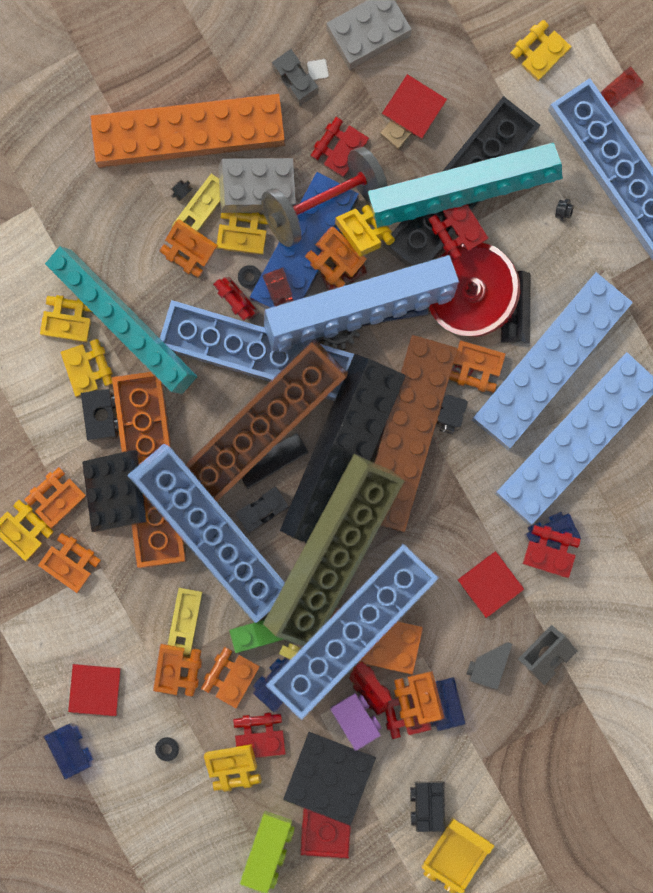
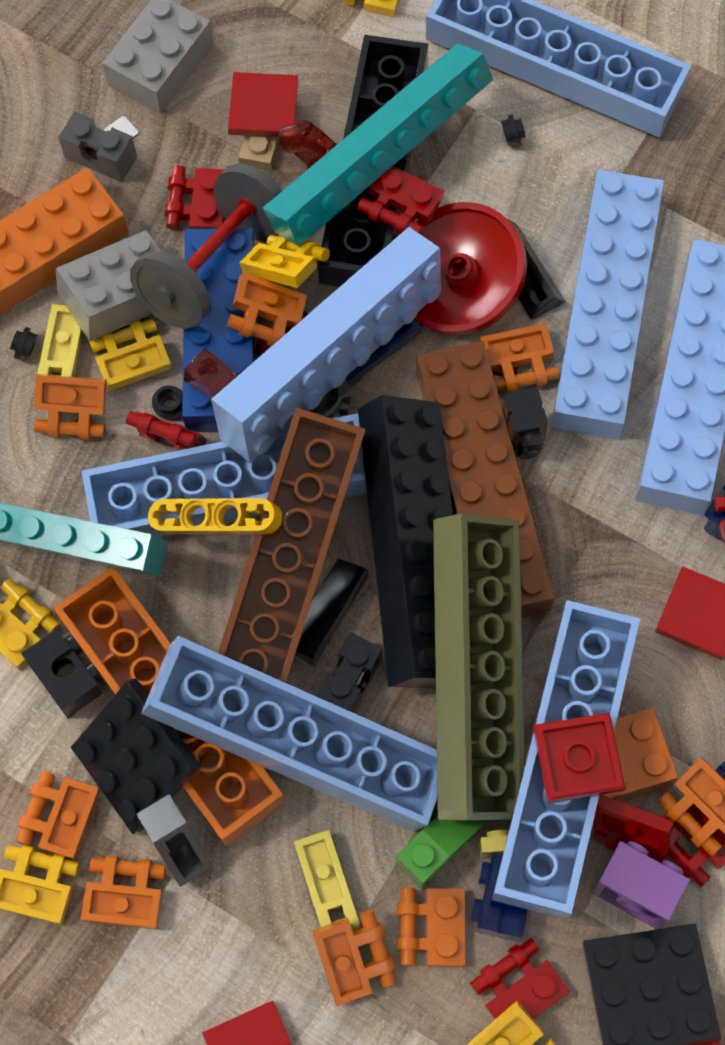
camera: 30 degrees left, 15 degrees down
(111, 552) = (174, 840): none -> dark grey brick
(231, 378) = (214, 516): none -> yellow beam
(355, 638) = (578, 758): none -> red tile
(428, 154) = (305, 141): none -> clear red leg

